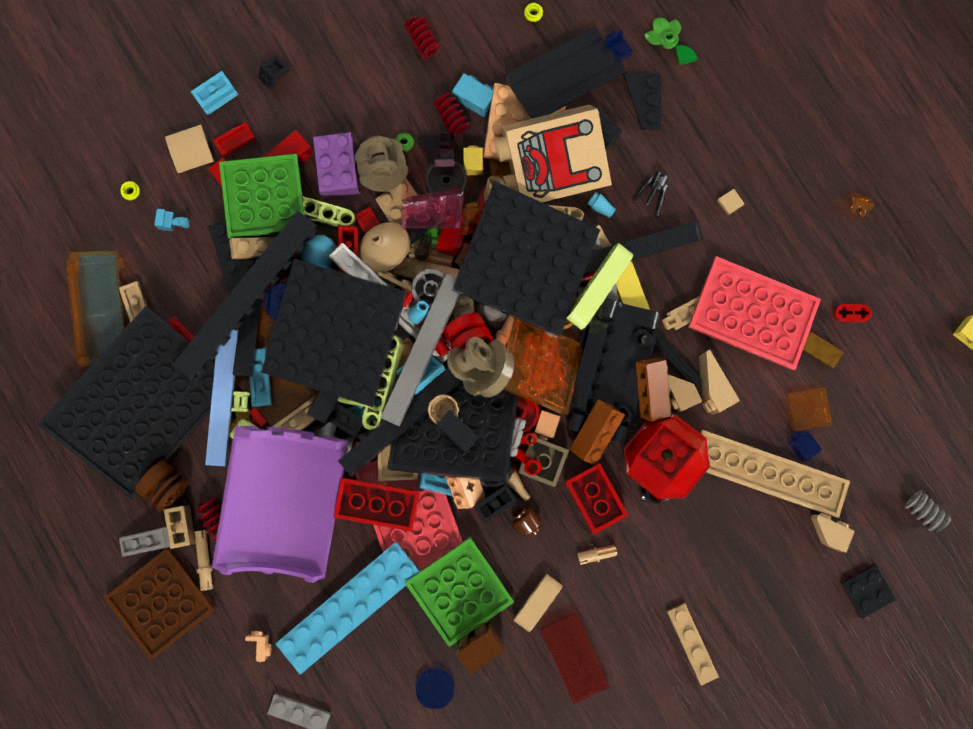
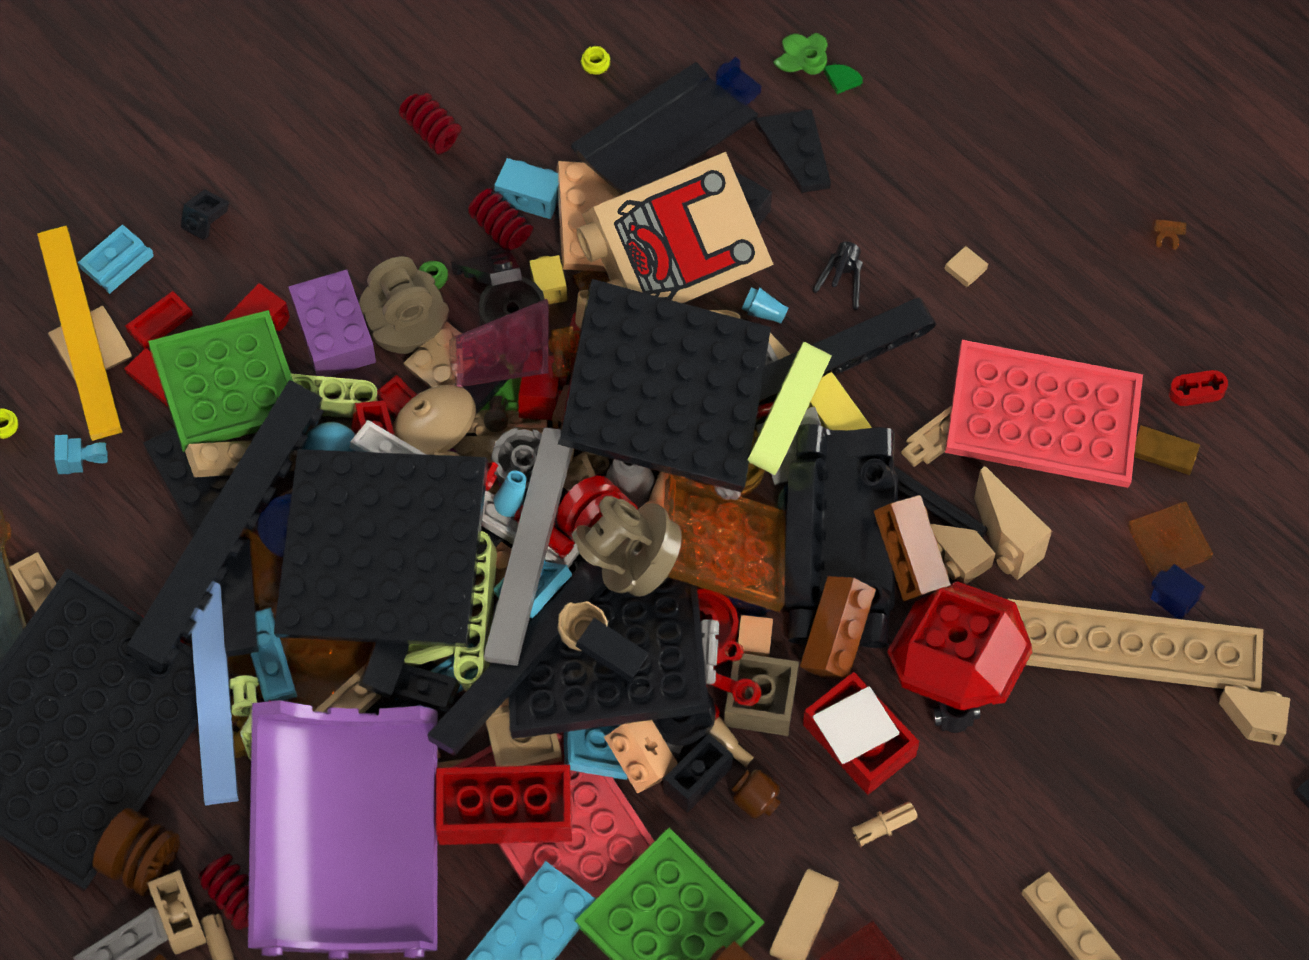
camera: 10 degrees left, 20 degrees down
(182, 141) = (79, 333): none -> yellow tile
(593, 497) = (856, 725): none -> white sticker

